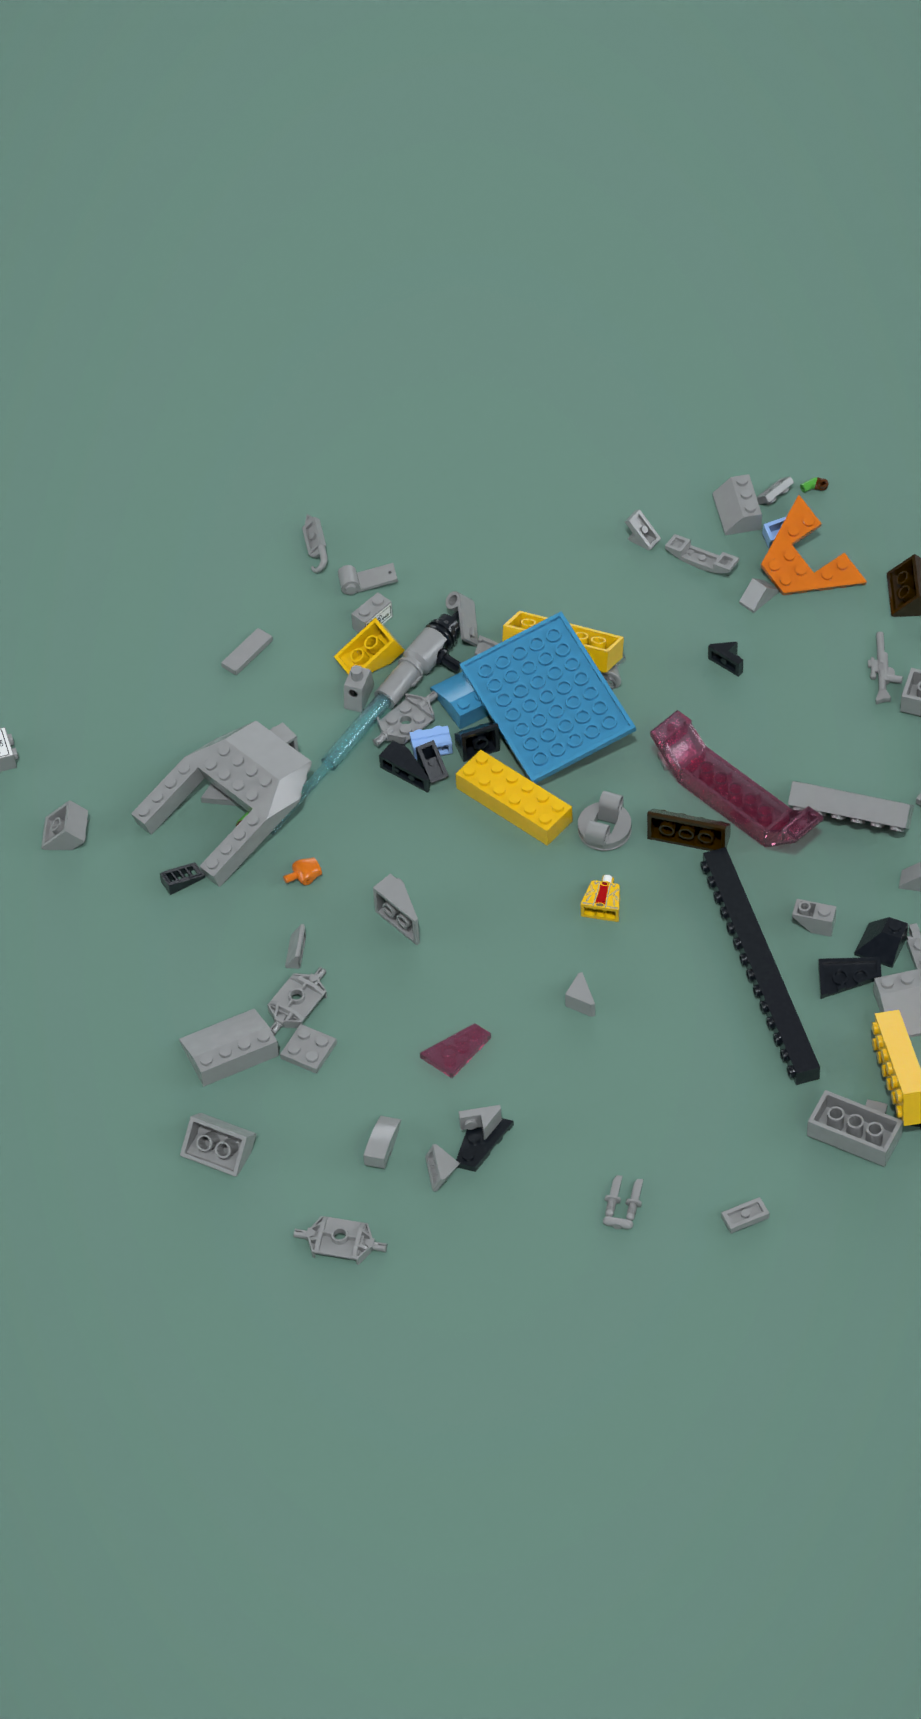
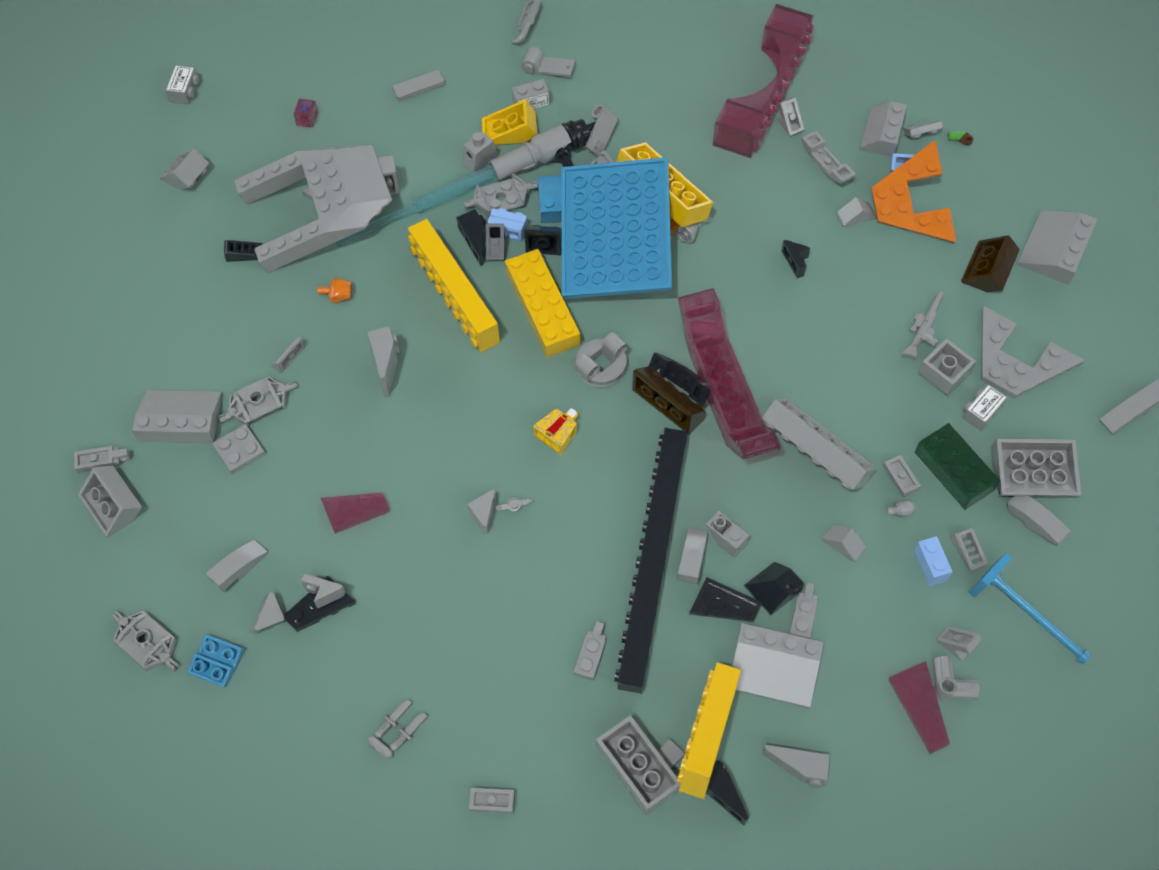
camera: 25 degrees right, 10 degrees up
(151, 724) = (305, 113): none -> clear pink brick
(179, 1114) = (99, 457): none -> light grey hinge
(418, 1224) = (215, 660): none -> dark azure slope
(420, 816) = (453, 285): none -> yellow brick
(602, 547) = (746, 118): none -> clear pink arch
(603, 979) = (513, 504): none -> light grey piece
(691, 805) = (681, 376): none -> black slope
(754, 1066) = (591, 652): none -> light grey hinge
(795, 949) = (692, 555): none -> light grey slope

